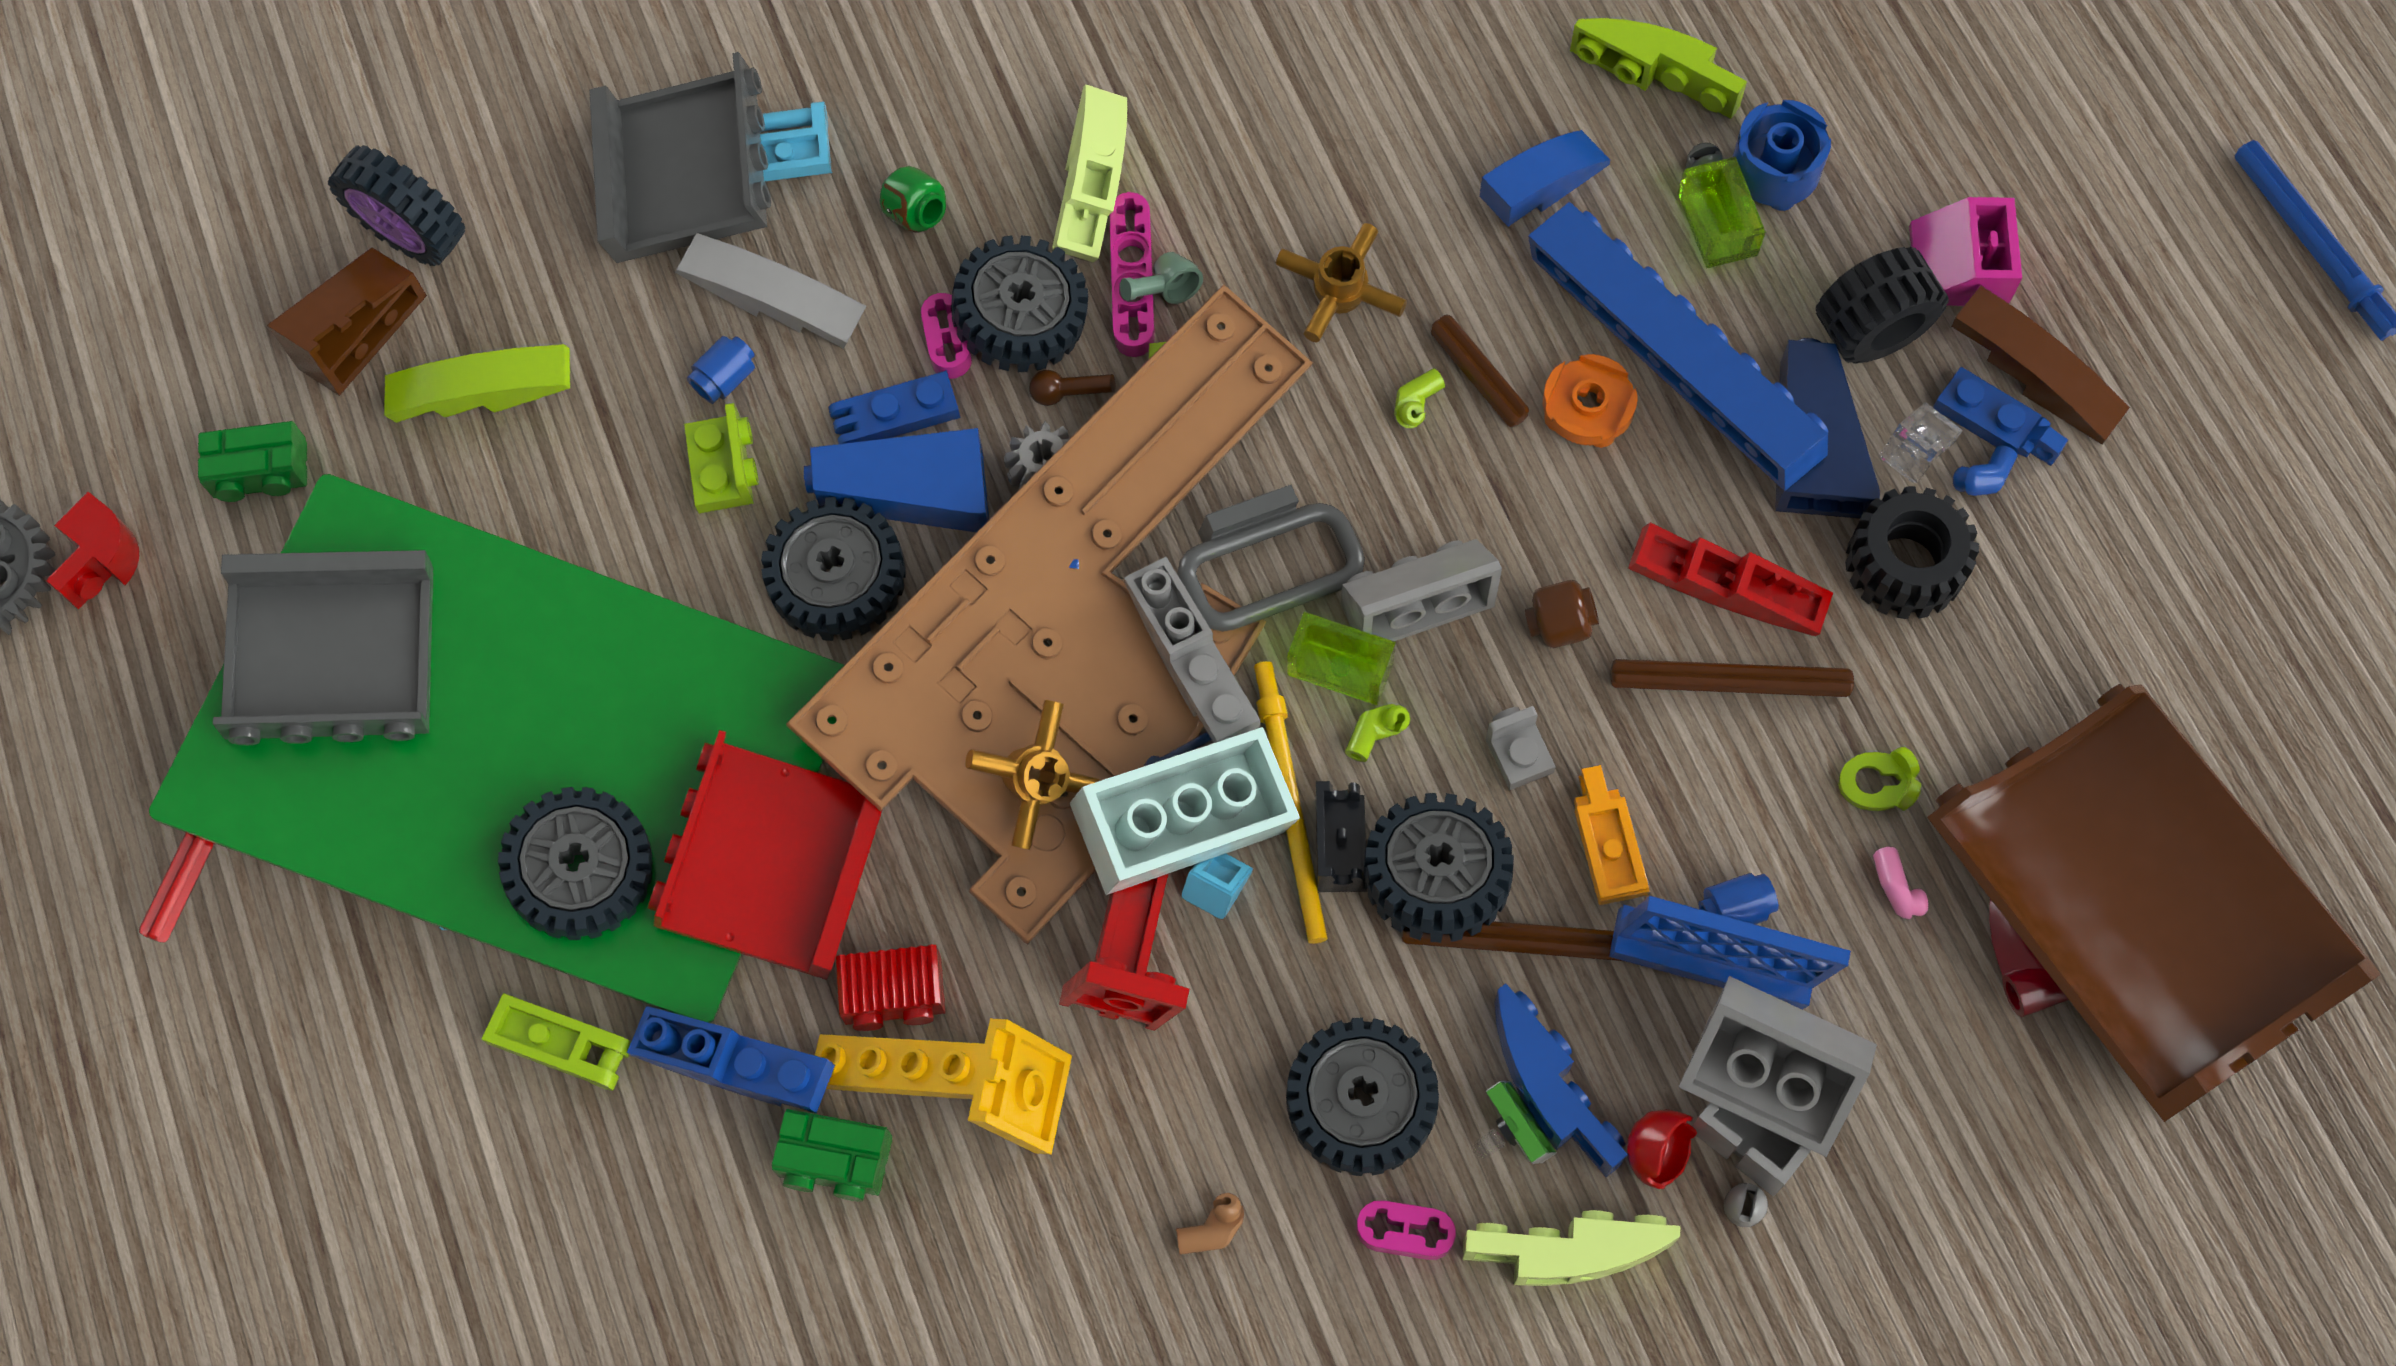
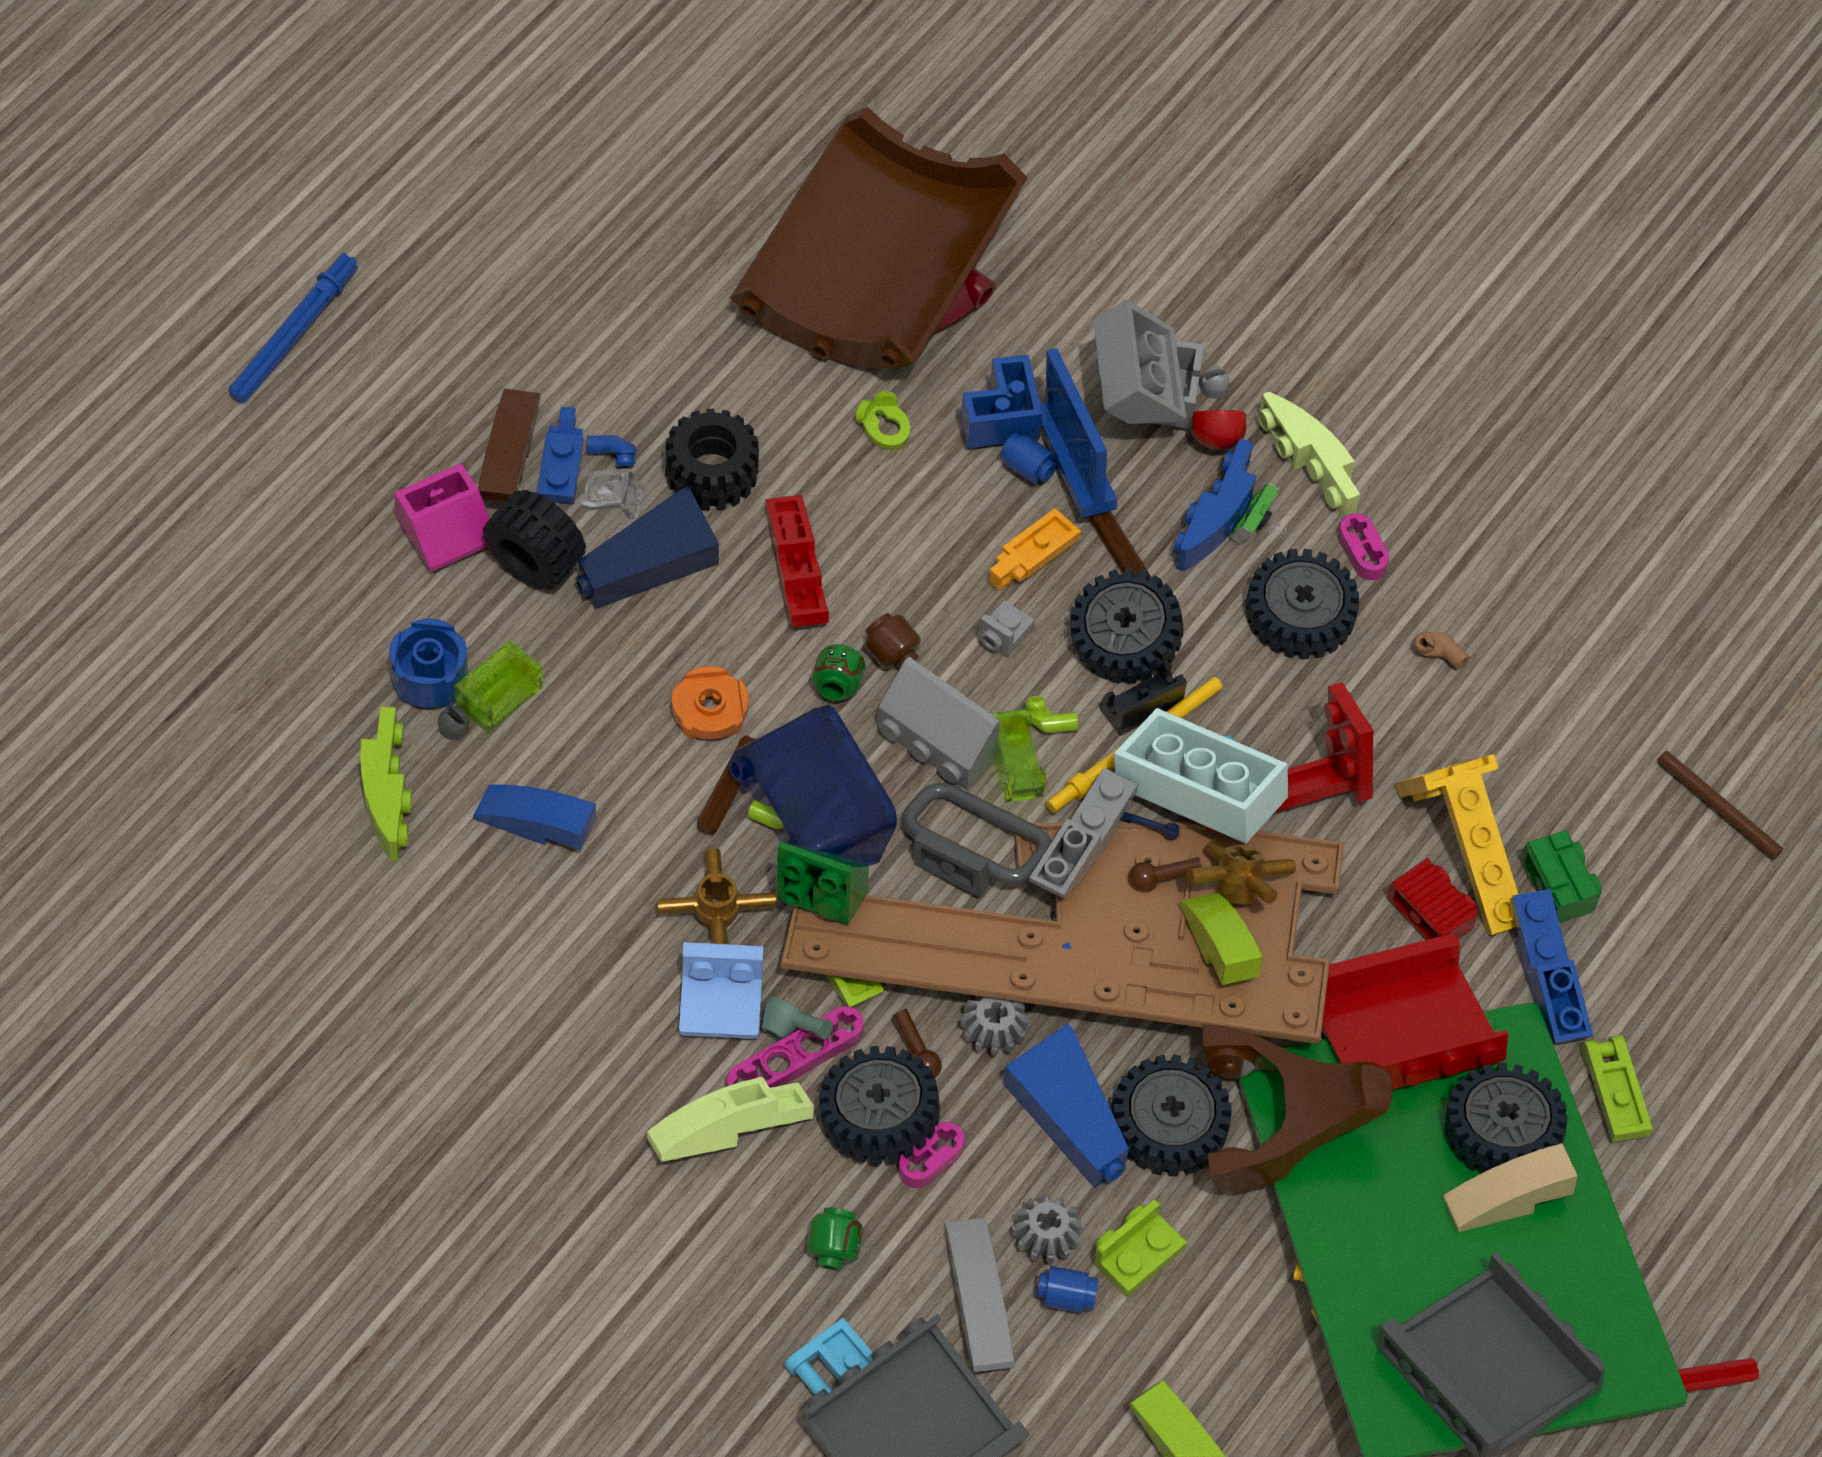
camera: 130 degrees left, 10 degrees down
(489, 805) = (1511, 1189): none -> tan slope
(721, 678) = (1319, 1104): none -> reddish brown animal
(776, 384) = (1060, 1236): none -> light grey gear
(895, 409) = (1015, 1155): blue hinge -> none
(969, 699) = (1223, 938): none -> lime slope
(1110, 699) = (1145, 876): none -> reddish brown bar
(1237, 236) = (721, 990): none -> light blue bracket
(1281, 354) = (820, 882): none -> green slope
(1403, 411) = (820, 786): none -> clear blue windscreen
(1553, 537) = (838, 672): none -> green head
(1680, 346) = (641, 656): blue brick -> none
(1732, 678) = (868, 532): reddish brown axle -> none
(1817, 911) = (1006, 409): none -> blue brick
(1895, 885) = (958, 378): bright pink arm -> none

